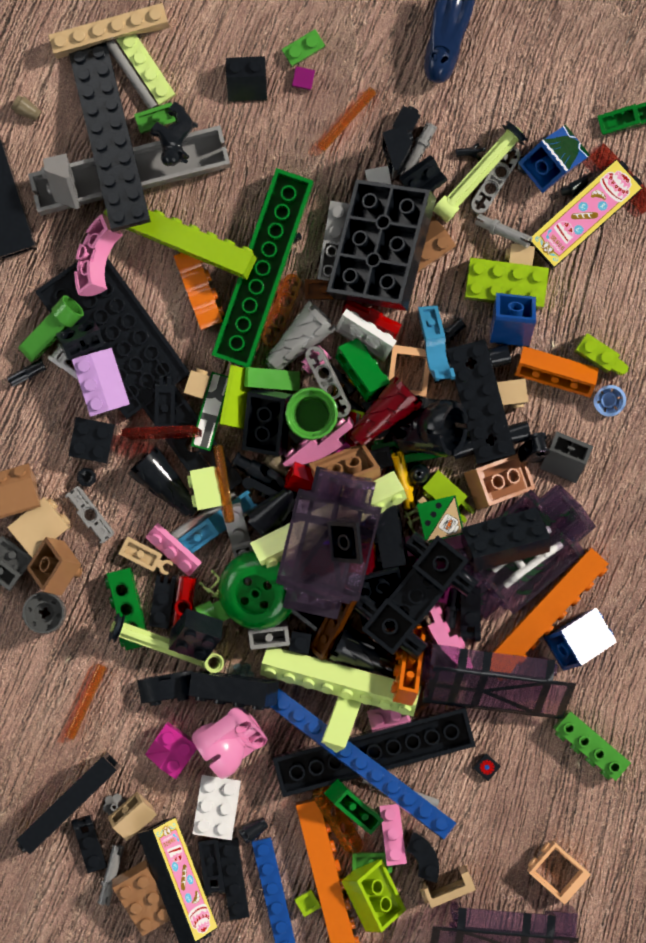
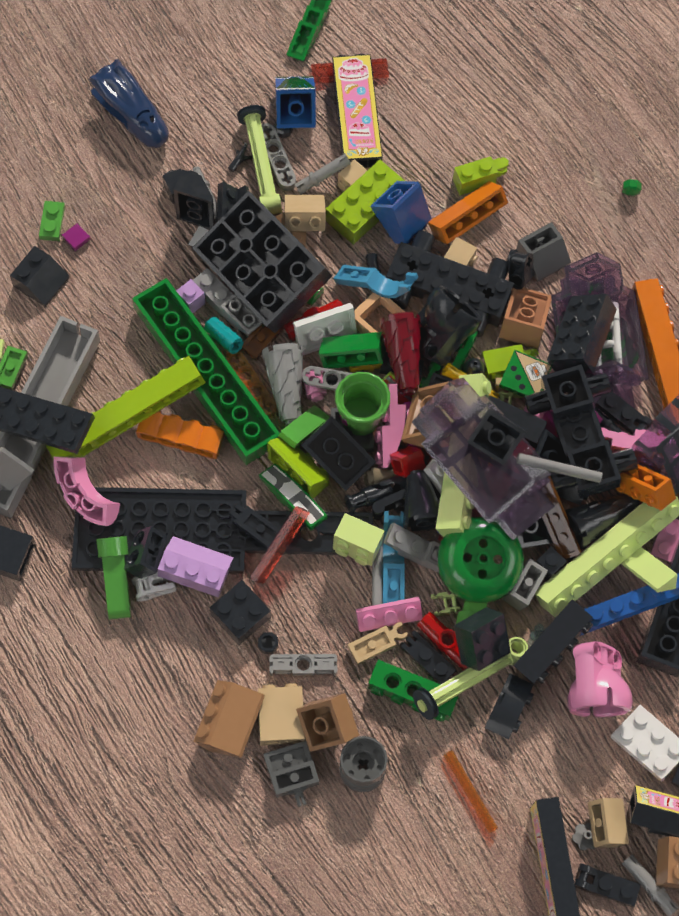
camera: 65 degrees left, 20 degrees down
(26, 373) = (135, 627): black axle -> none
(162, 481) = (315, 578): black cone -> none
(171, 750) = (570, 744): dark pink slope -> none
(174, 135) = (38, 352): black animal -> none
(197, 384) = (260, 492): tan brick -> none
(223, 483) = (388, 532): clear orange piece -> none
(303, 259) = (223, 335): none -> teal axle
(316, 209) = (192, 295): none -> lavender brick
(346, 119) = (136, 228): clear orange piece -> none
(363, 603) = (558, 467): none -> light grey piece
(454, 243) = (305, 212): none -> tan panel
(575, 187) = (329, 107): pearl dark grey bar -> none
(609, 400) = (519, 196): light blue helmet -> none

